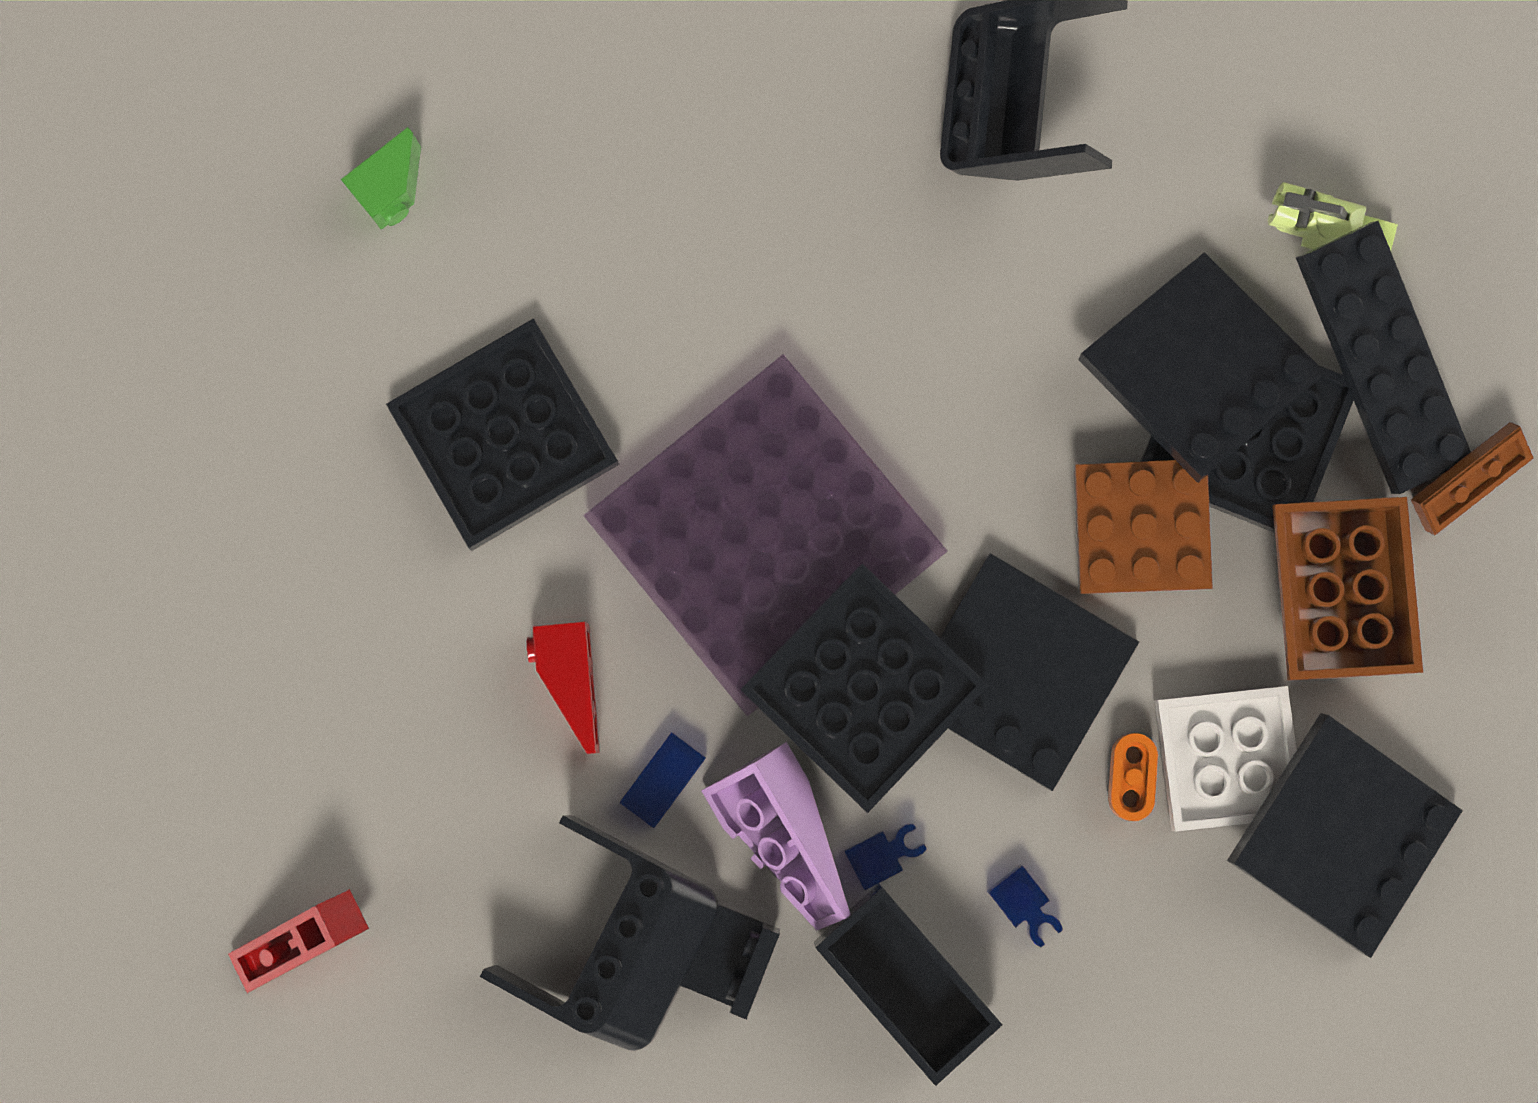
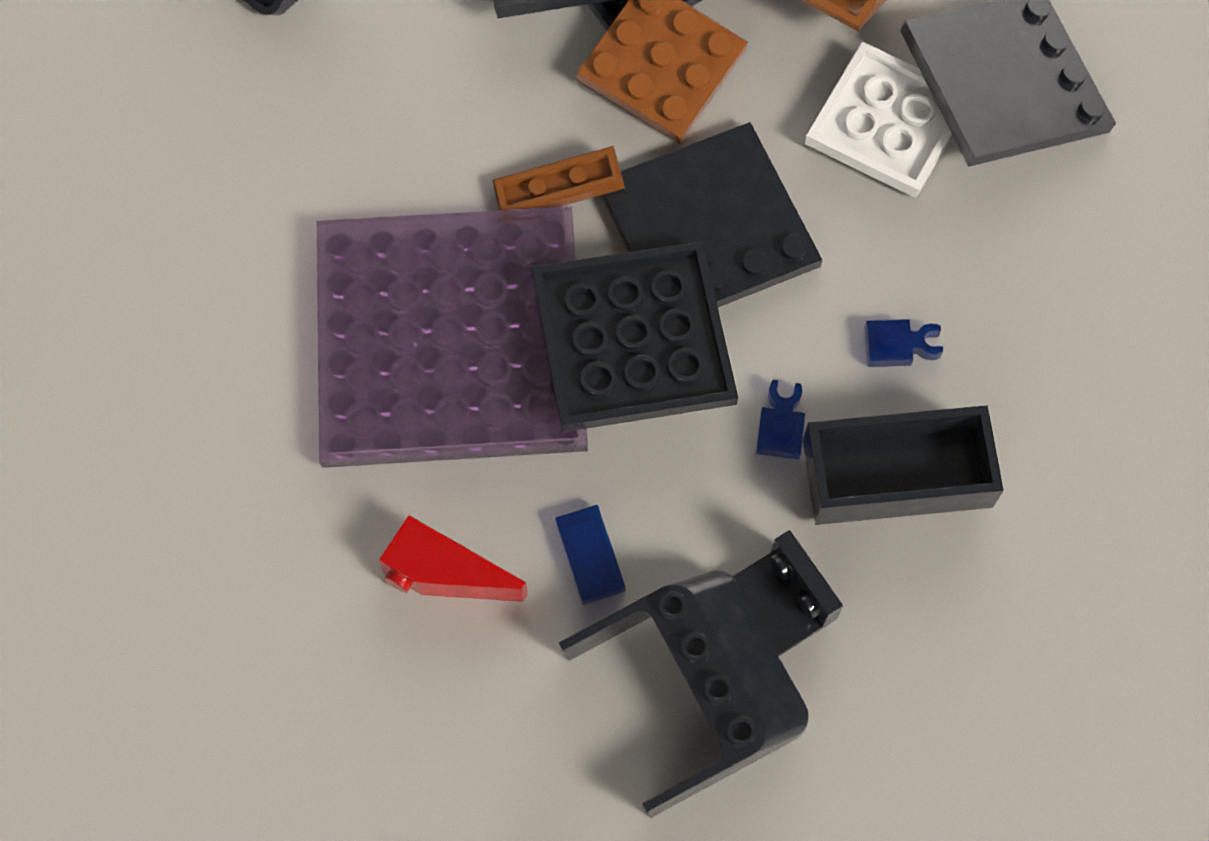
camera: 55 degrees left, 15 degrees down
(502, 434) = (198, 485): black plate -> none
(779, 820) = (696, 481): lavender wedge -> none
(963, 524) = (561, 181): none -> dark orange tile
(1138, 777) = (857, 194): orange plate -> none

